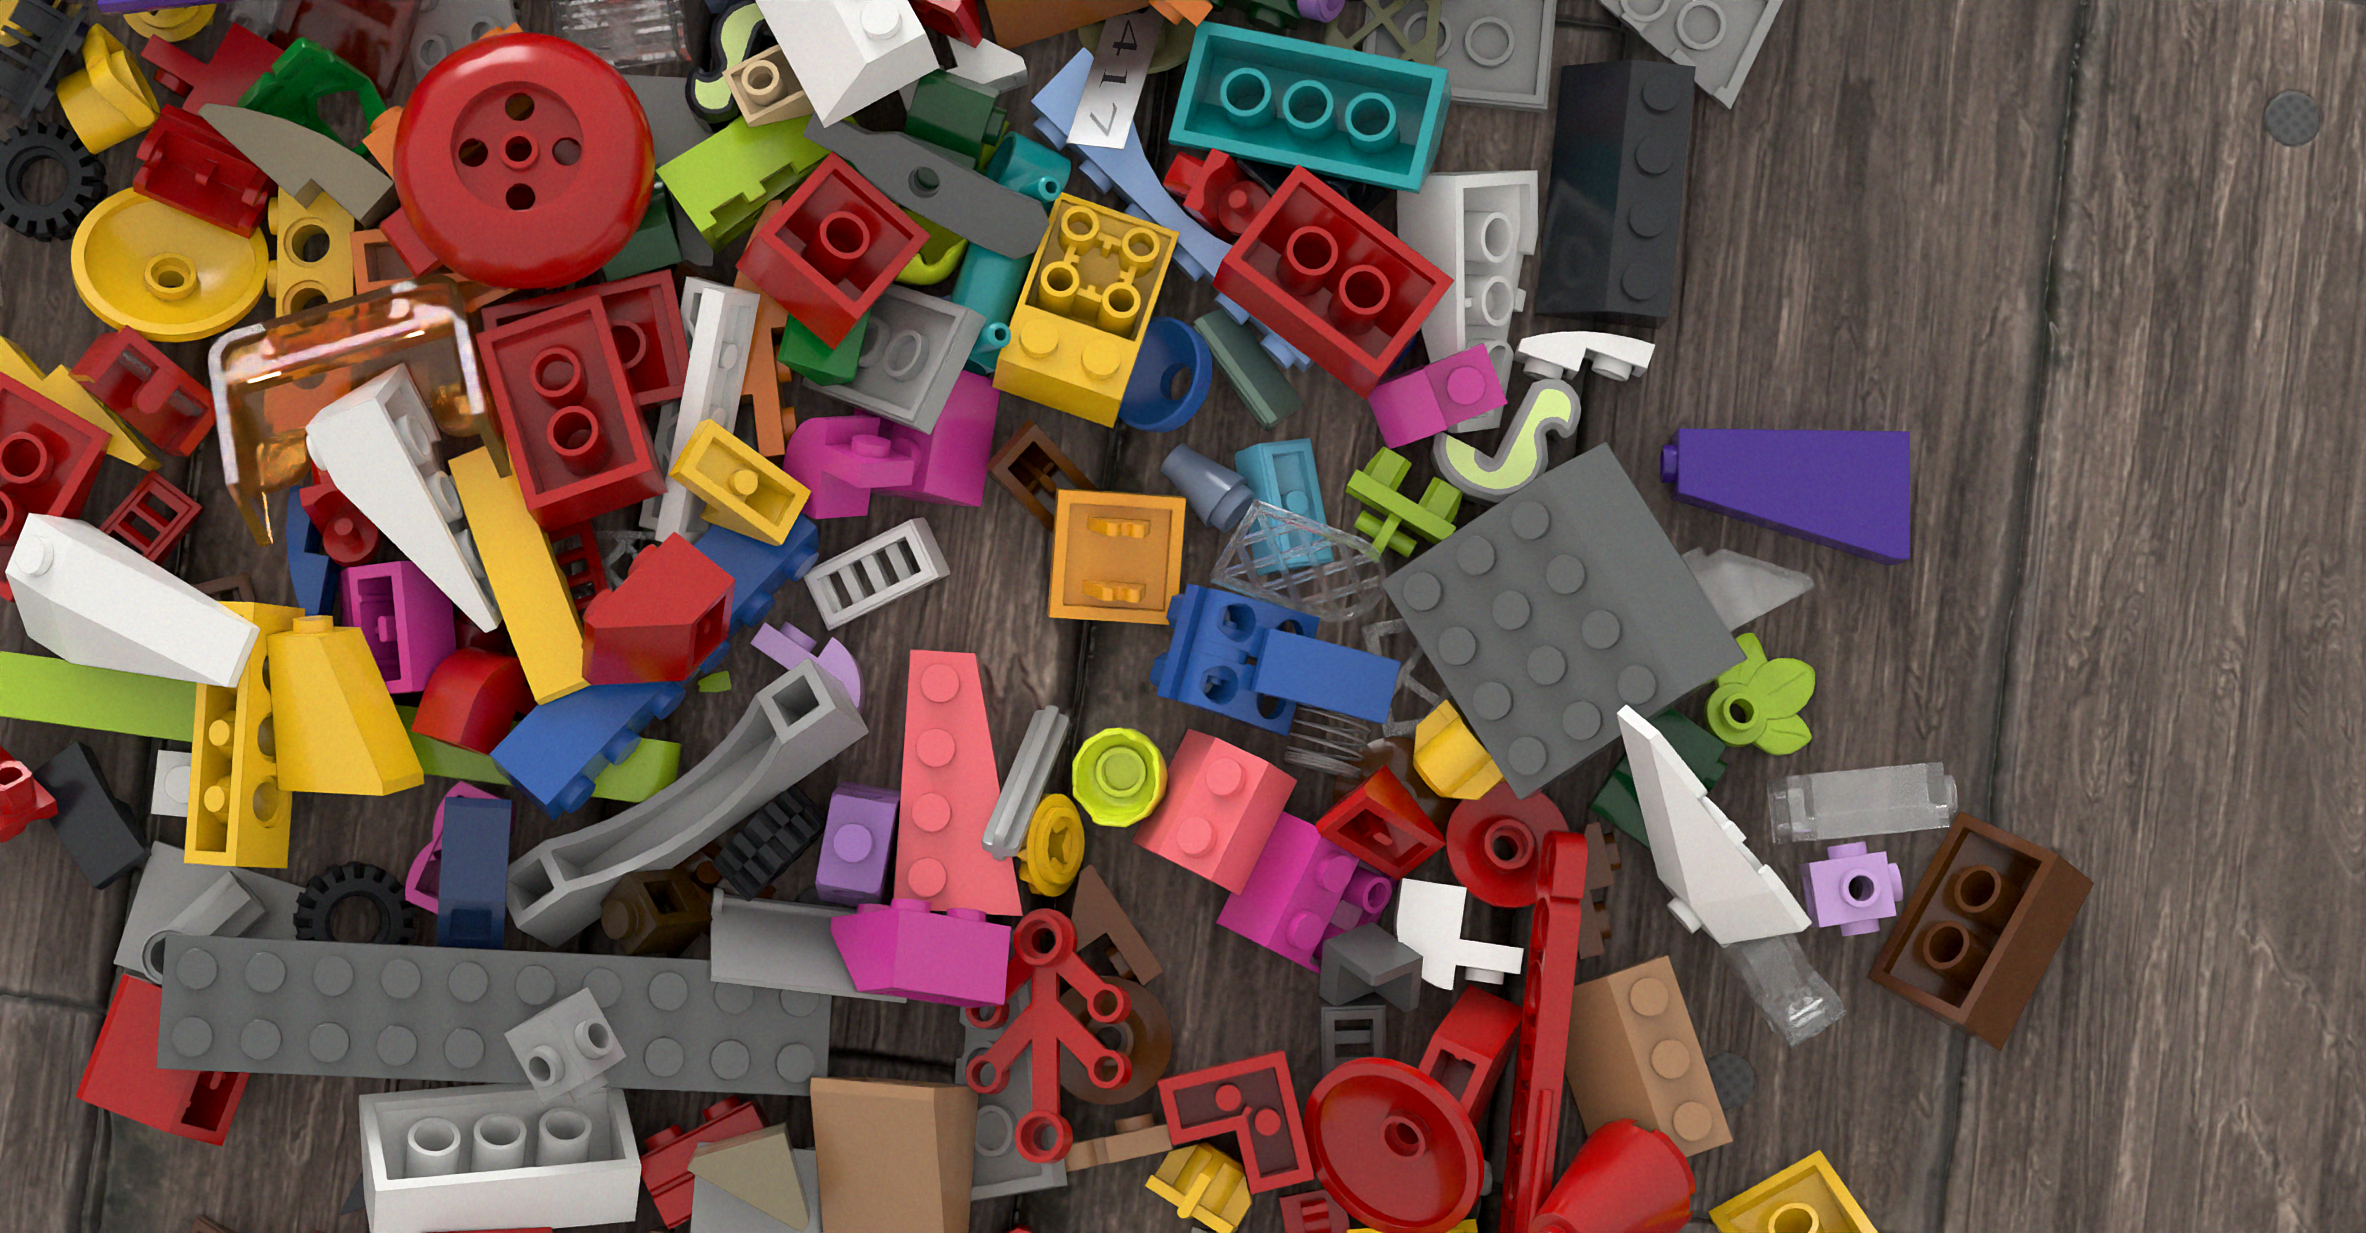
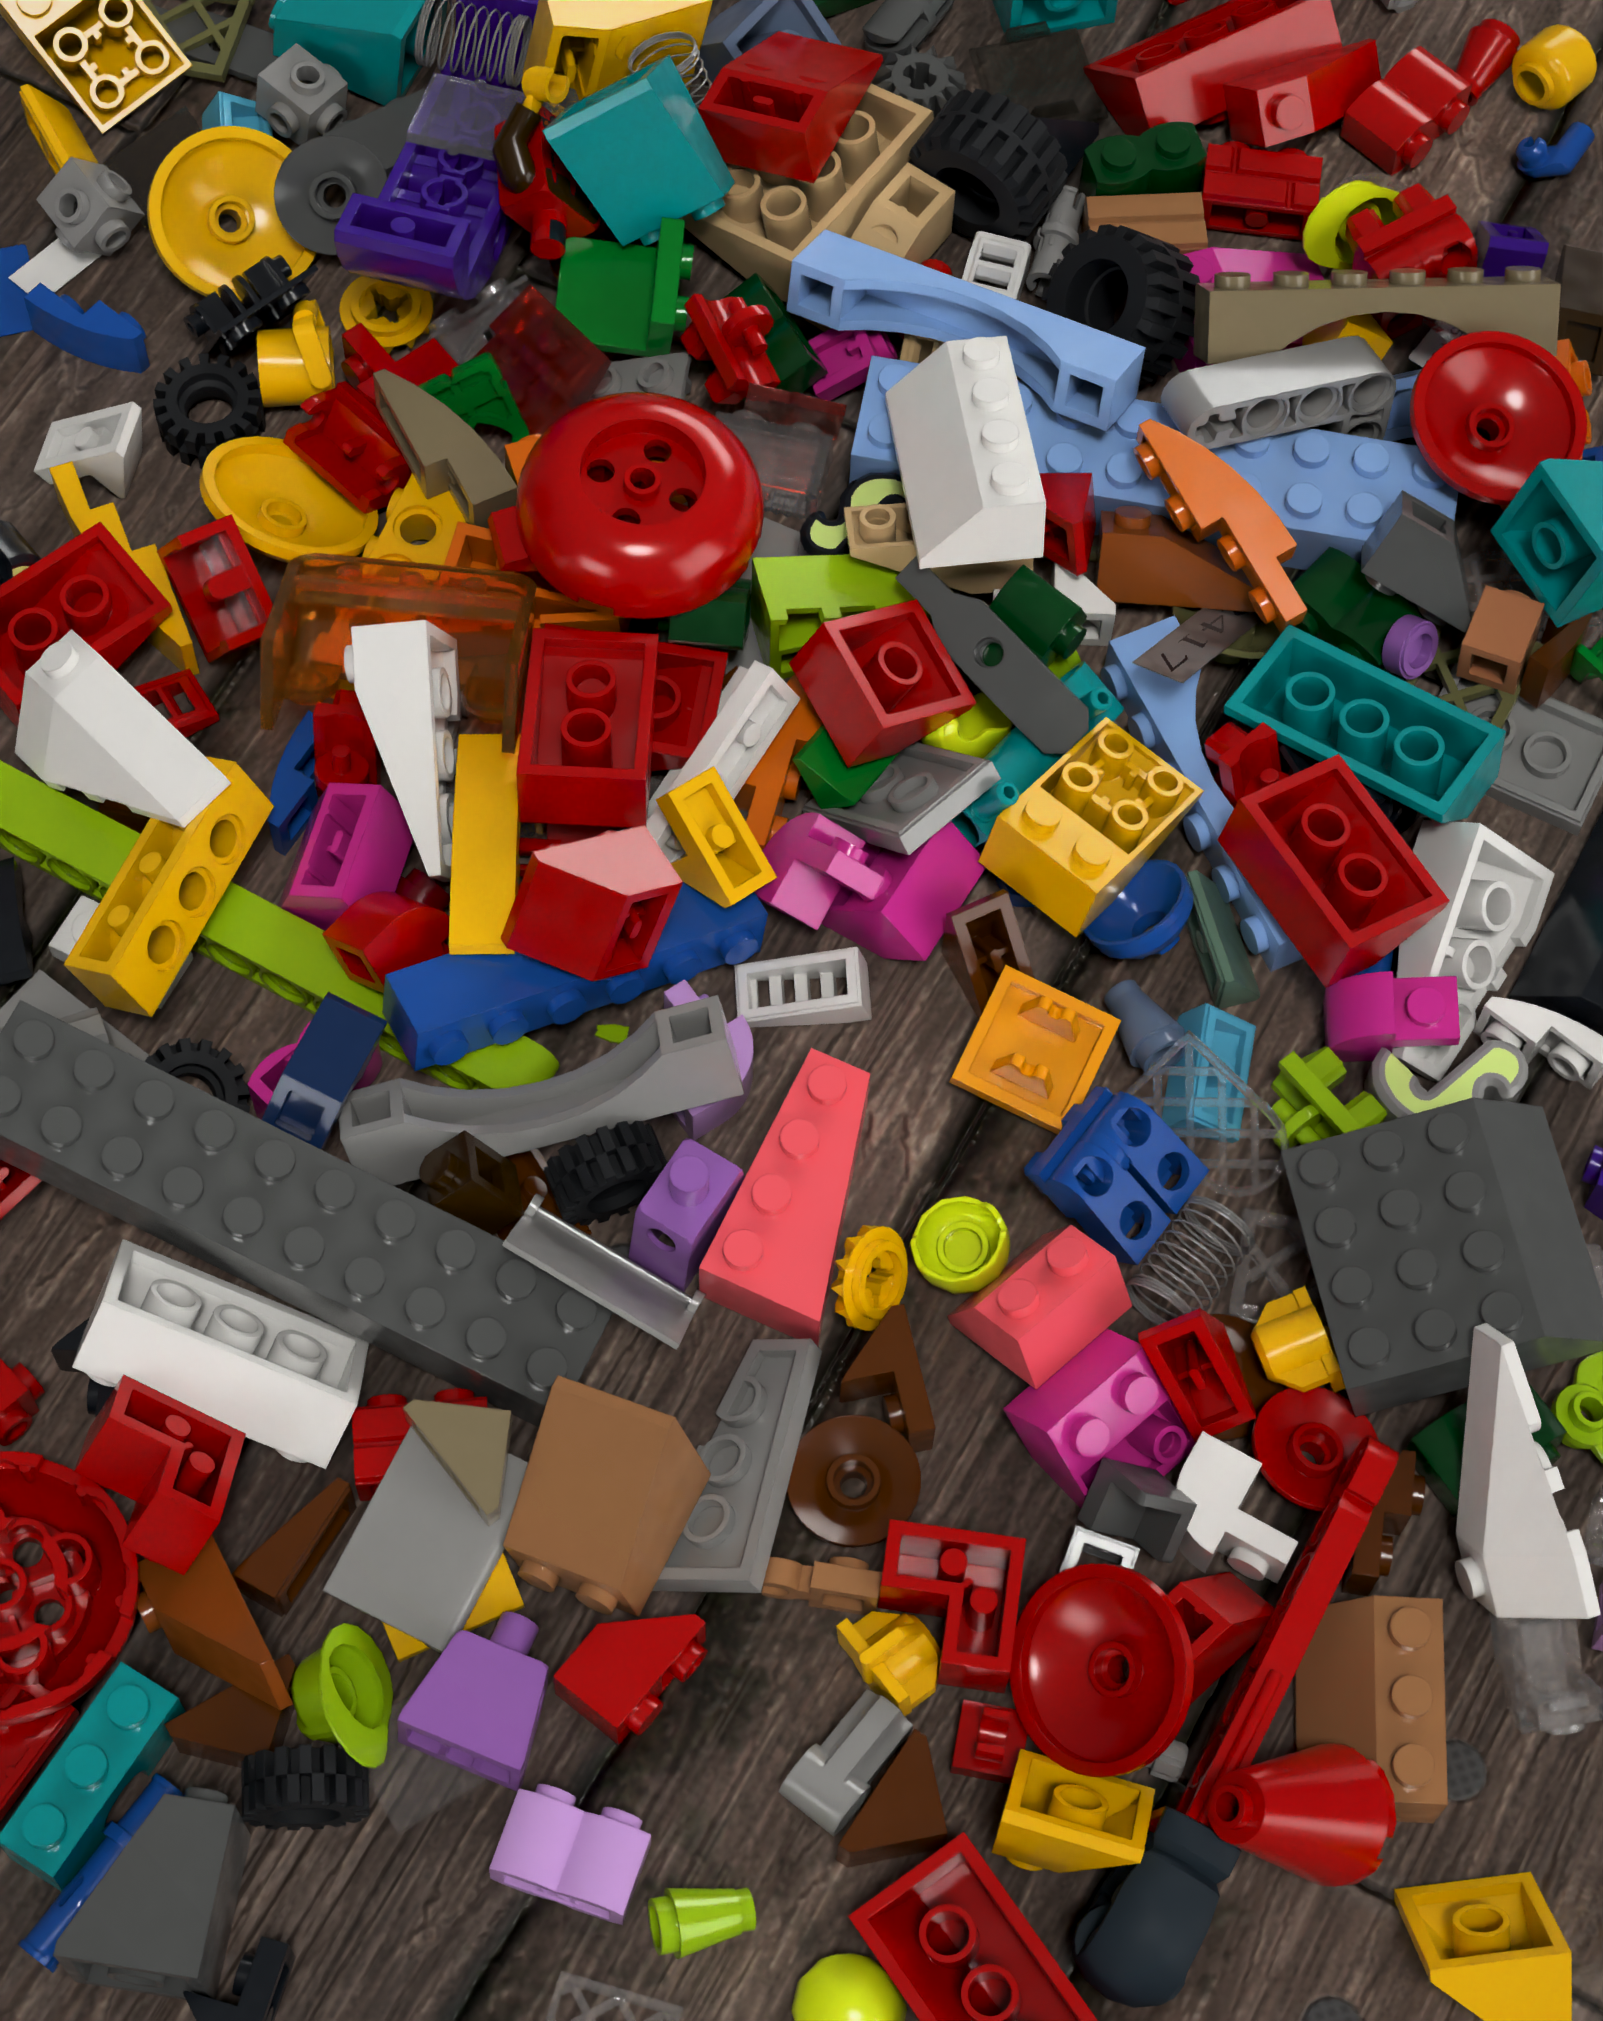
camera: 20 degrees right, 20 degrees down
(335, 714) = (259, 893): yellow slope -> none
(566, 1048) = (341, 1239): light grey brick -> none
(925, 954) = (717, 1308): dark pink slope -> none
(1025, 783) = (870, 1206): light grey axle -> none
(1045, 1025) = (796, 1428): red plant -> none
(1325, 676) = (1199, 1210): blue slope -> none

